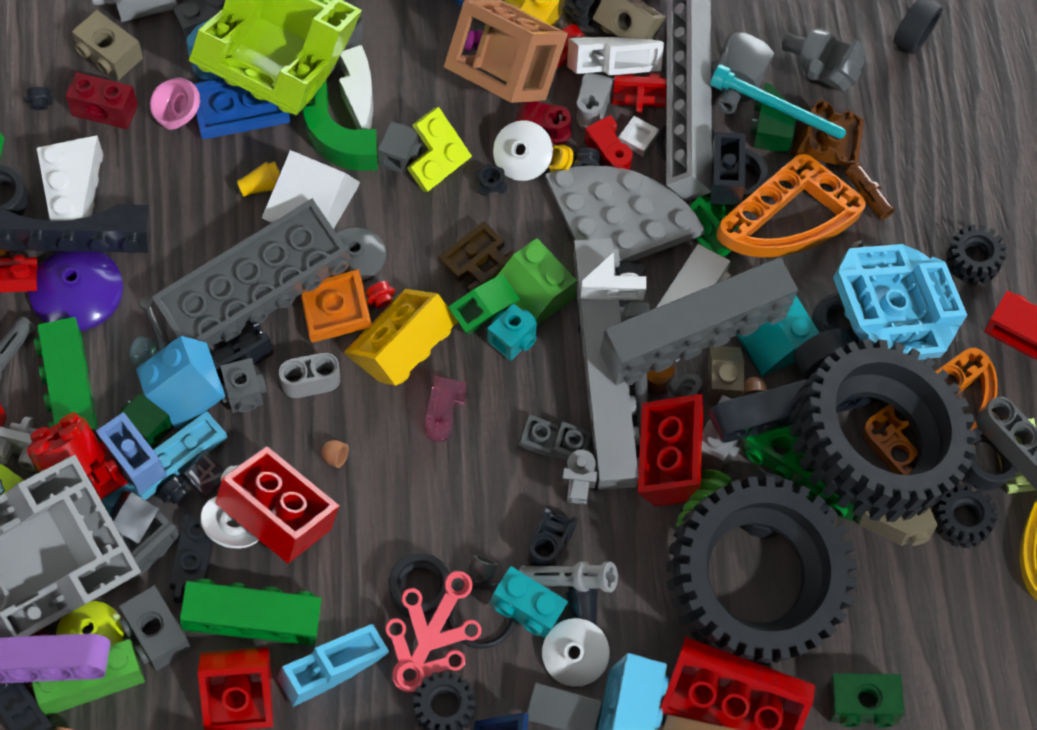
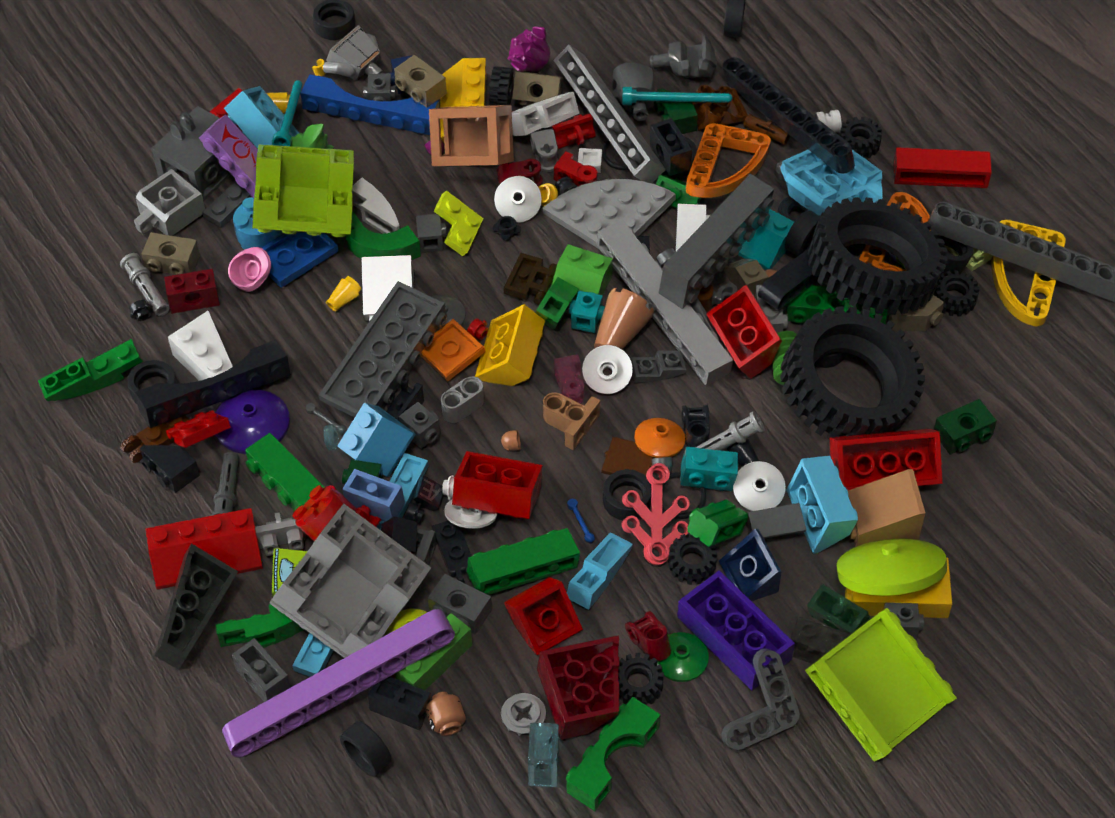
camera: 25 degrees left, 10 degrees down
(61, 58) = (140, 277): none -> light grey pin
(355, 565) = (572, 504): none -> blue hinge
(416, 448) = (570, 416): none -> medium nougat tile
(452, 539) = (625, 455): none -> reddish brown piece
(476, 413) = (603, 358): none -> white dish
(492, 677) = (717, 522): none -> green brick
(500, 543) = (659, 437): none -> orange dish
(538, 366) = (622, 318): none -> nougat cone
(579, 476) = (693, 378): light grey hips -> none
(604, 285) = (643, 246): white slope -> none
(897, 191) = (789, 115): none -> black beam
(947, 215) = (832, 119): none -> white wheel

